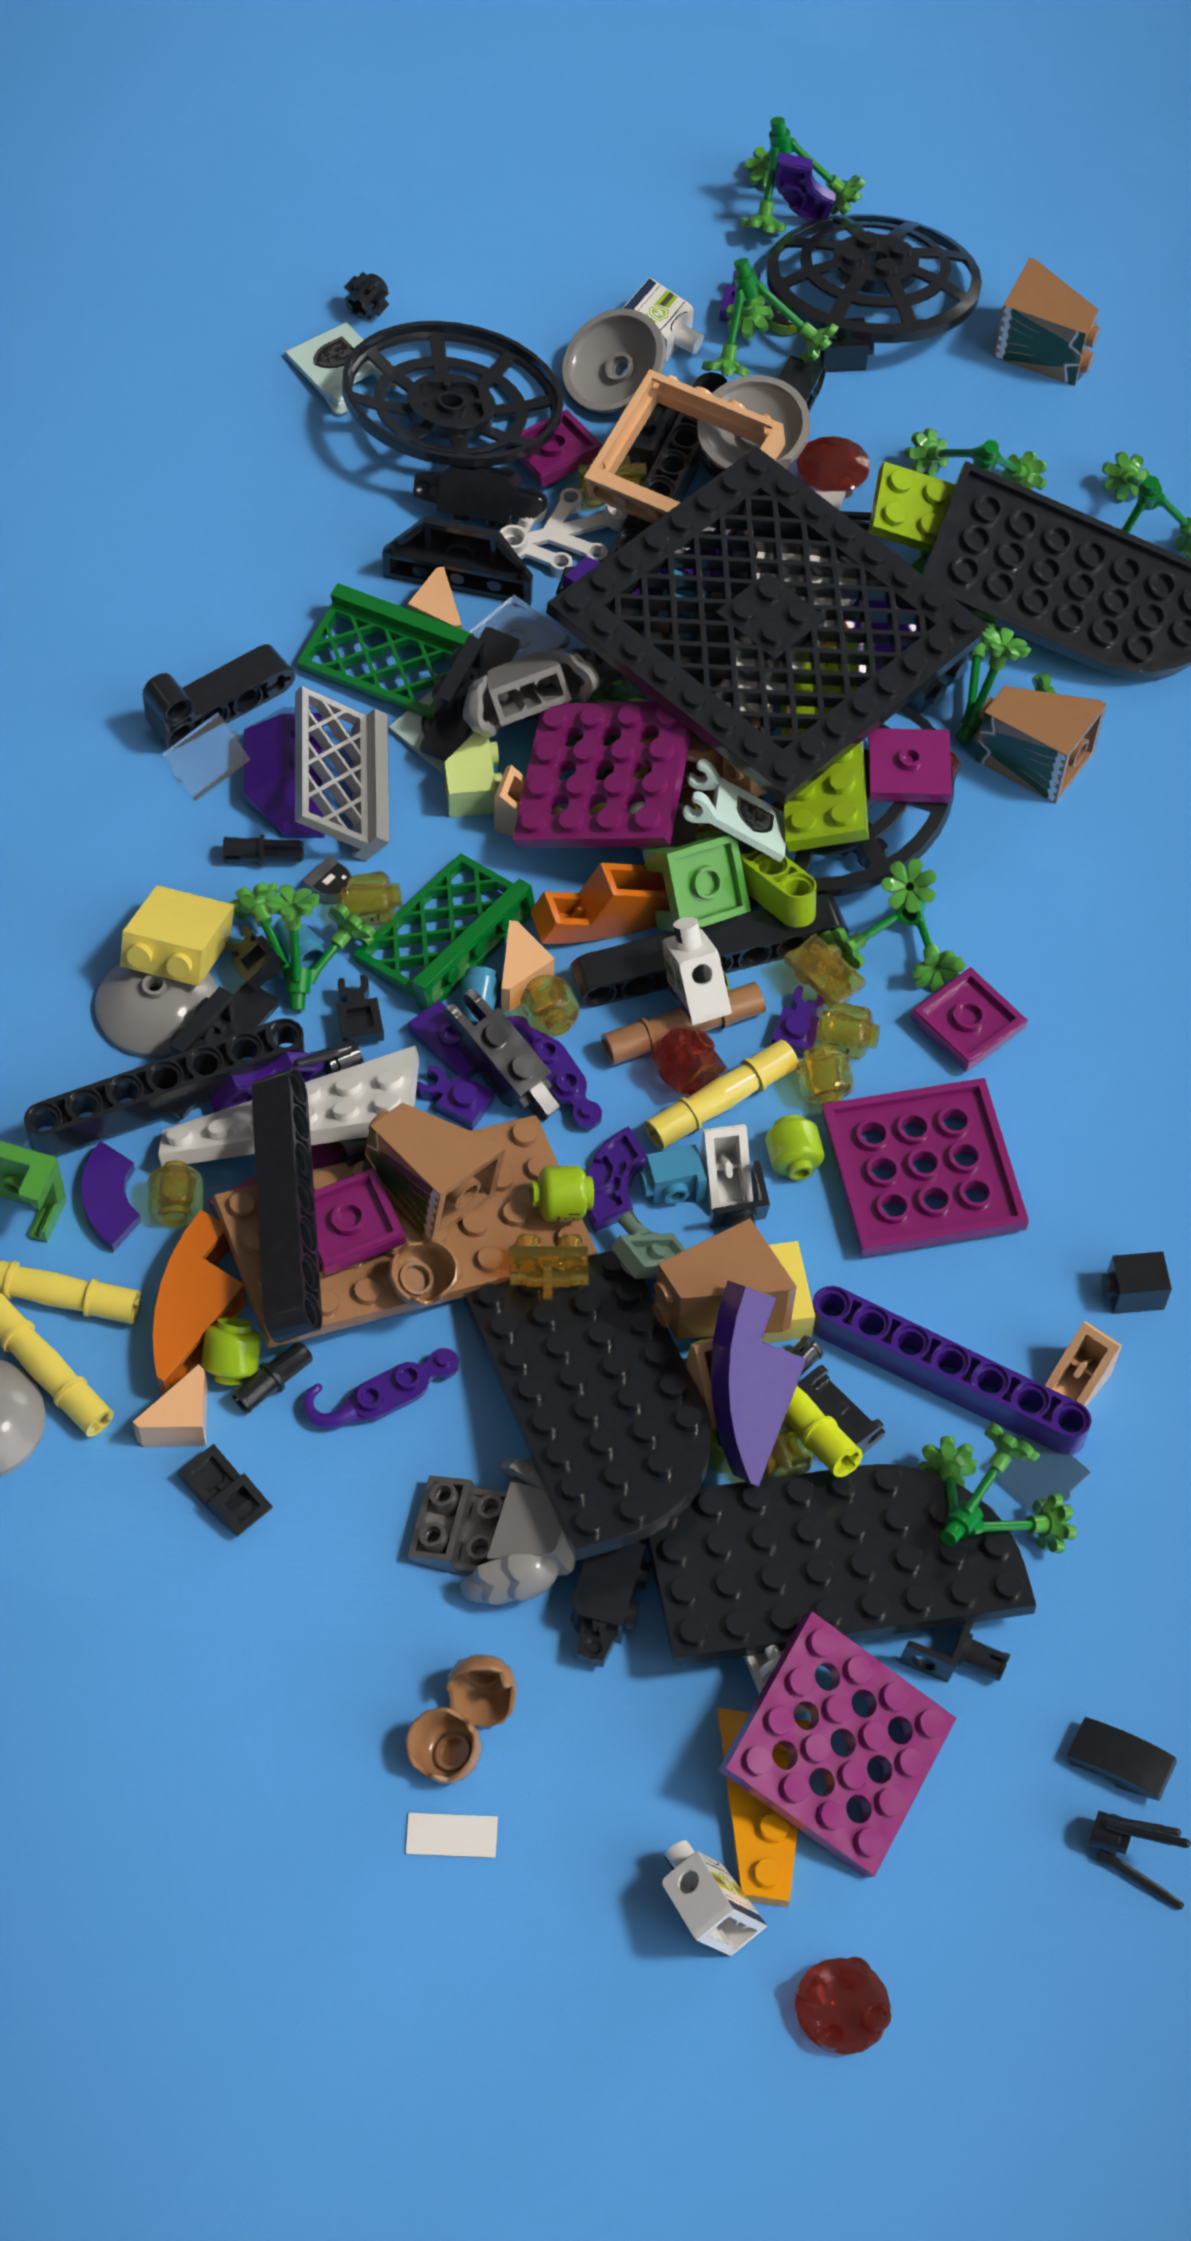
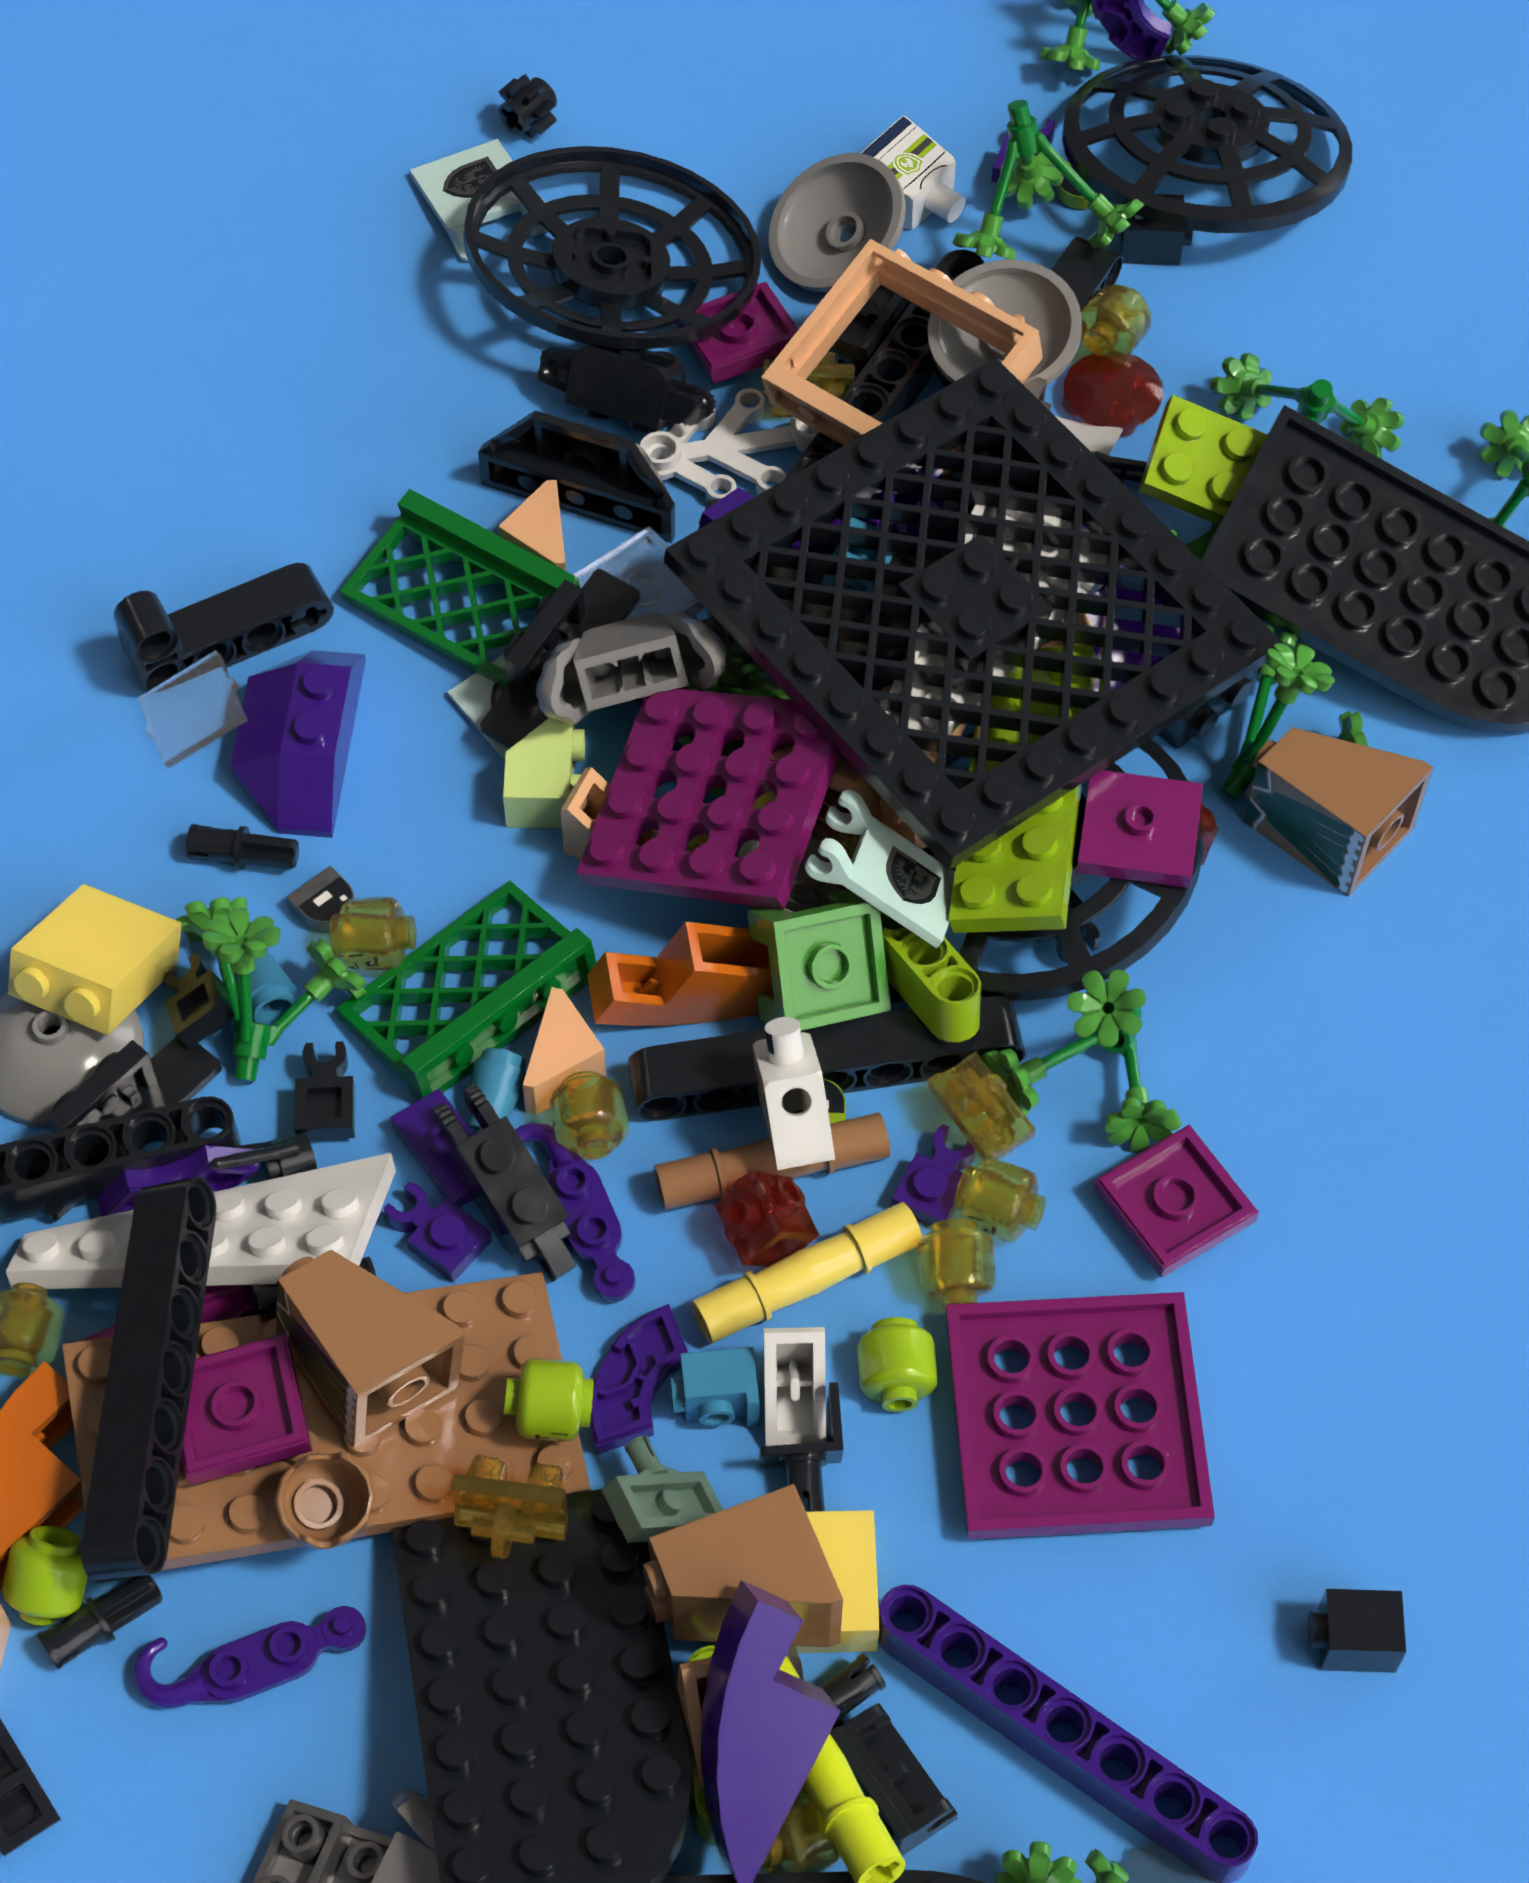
camera: 10 degrees right, 0 degrees up
(366, 779) = (399, 771): light grey fence -> none
(829, 414) = (1115, 321): none -> clear yellow head
(1047, 326) = (1431, 228): medium nougat slope -> none
(1085, 1364) = (1259, 1755): light nougat slope -> none

